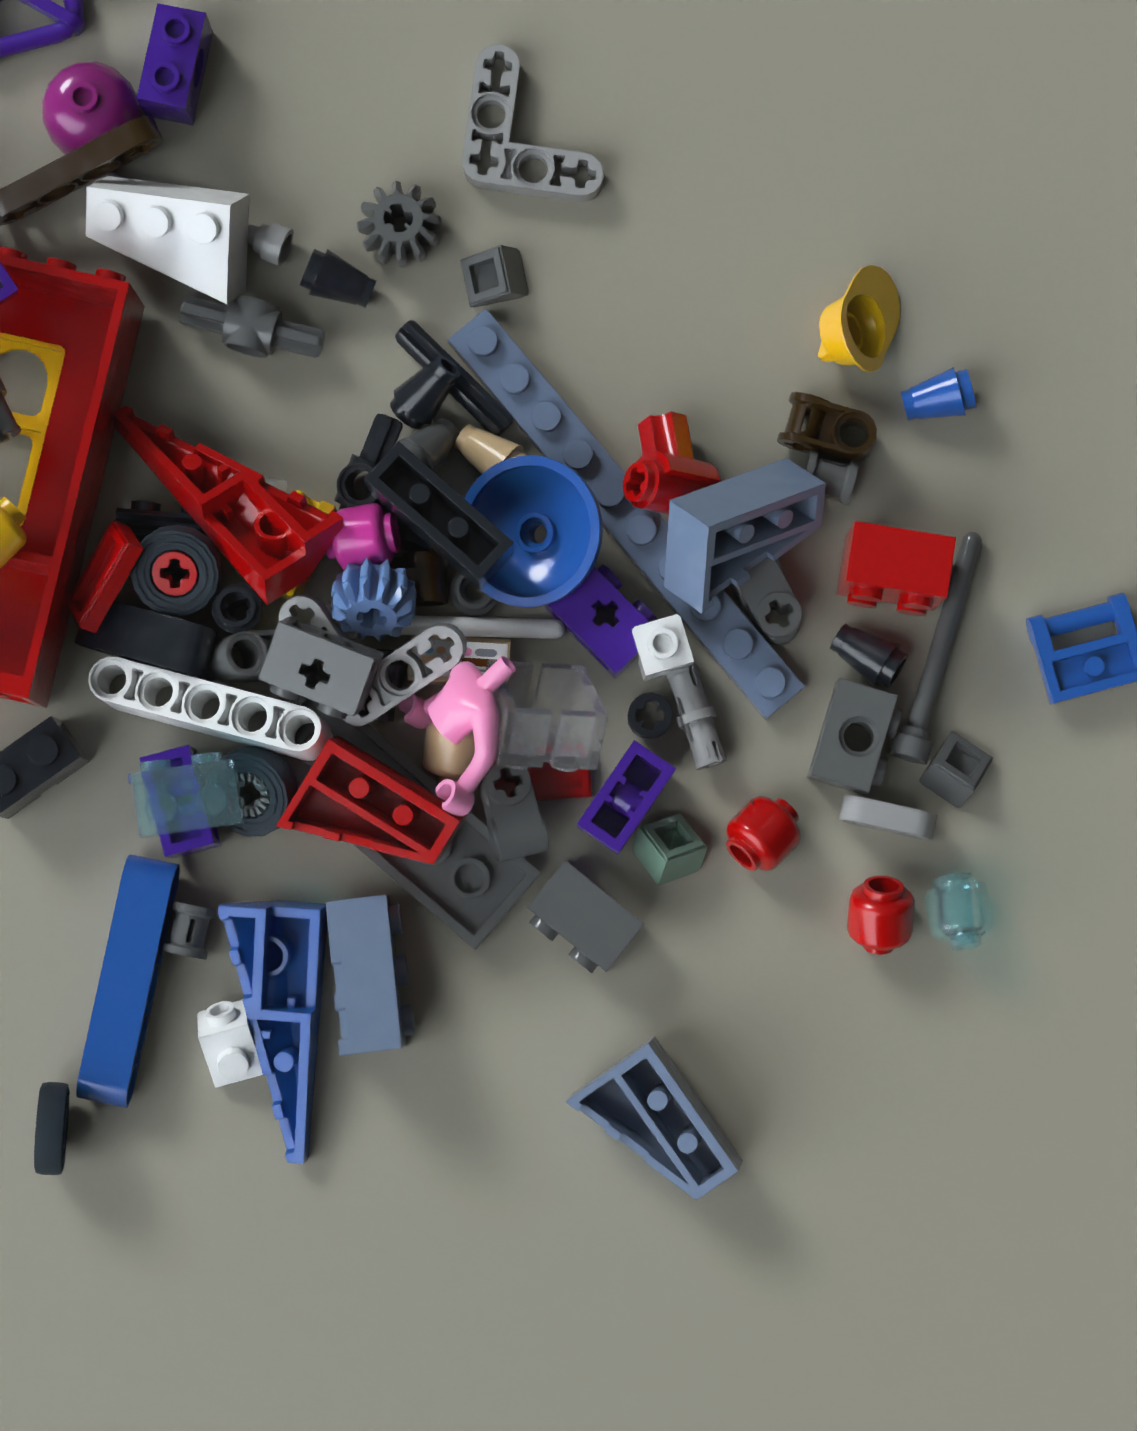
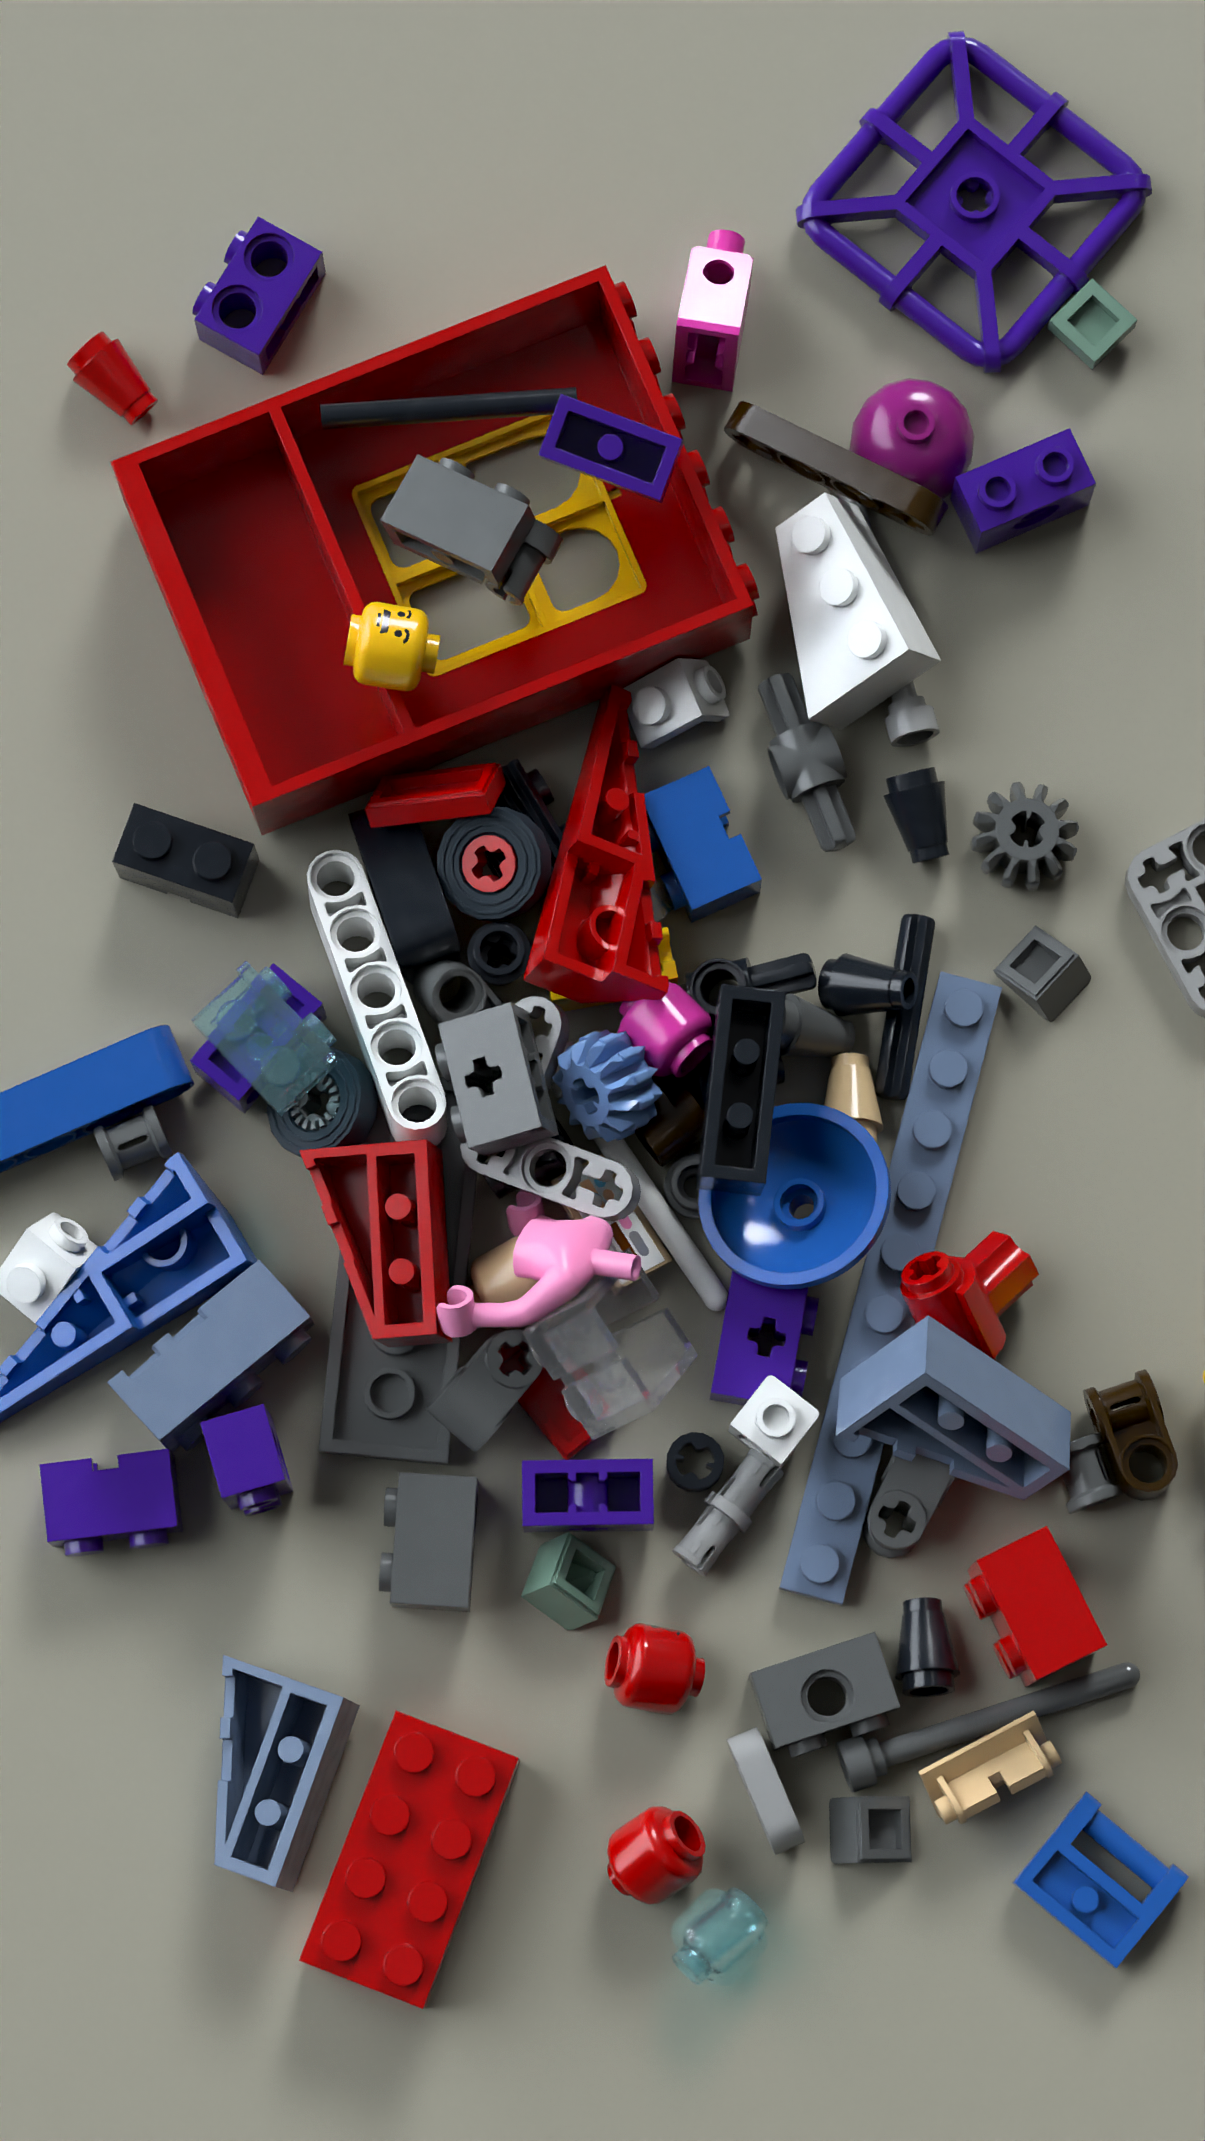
camera: 55 degrees right, 5 degrees down
(151, 381) = (675, 700): none -> white bracket
(256, 436) = (701, 861): none -> blue brick
(421, 1094) = (111, 1504): none -> dark purple brick
(450, 999) = (247, 1460): none -> dark purple brick
(777, 1072) = (410, 1860): none -> red brick
(969, 690) = (969, 1777): none -> tan hinge

